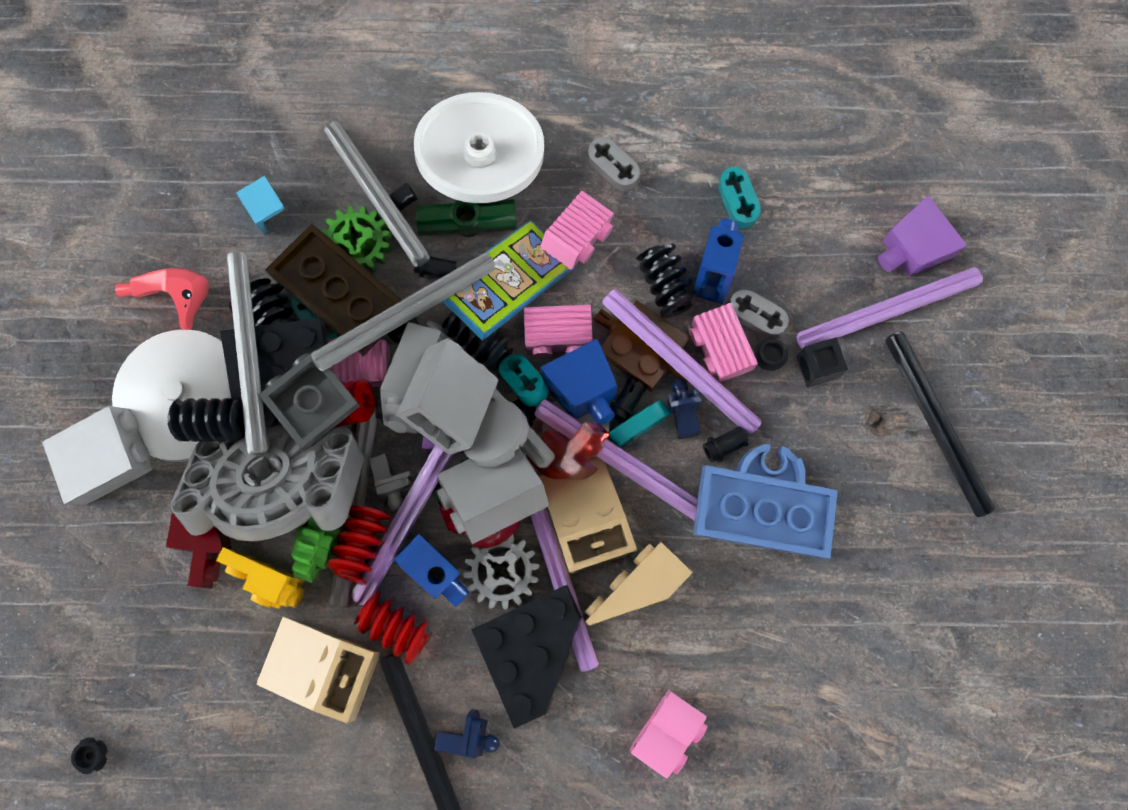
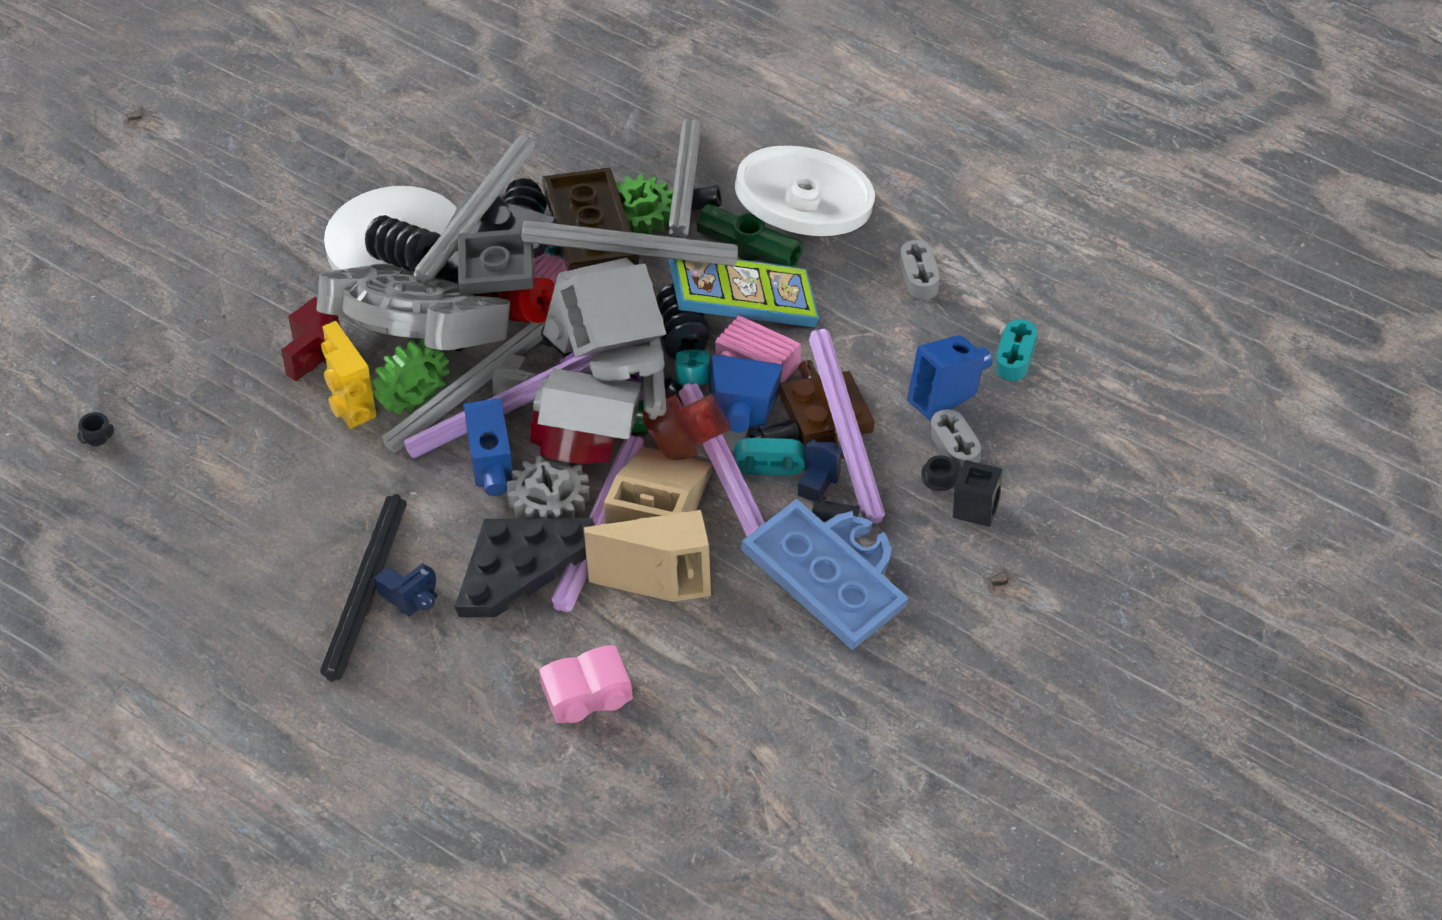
camera: 35 degrees right, 30 degrees down
(97, 455) = (292, 233): brick -> none
(183, 285) = (465, 162): coral animal -> none
(260, 202) = (582, 137): medium azure panel -> none
(318, 670) = (335, 474): slope -> none
(357, 543) = (445, 393): red piece -> none
(392, 628) = (420, 477): red piece -> none
(577, 230) = (838, 289): bright pink brick -> none
(666, 280) = (889, 368): black piece -> none
(723, 343) = (899, 438): bright pink brick -> none
(891, 307) = (1101, 503): lavender axle -> none
(921, 240) = (1161, 462): medium lavender torso -> none
(940, 424) = (1057, 611): black axle -> none

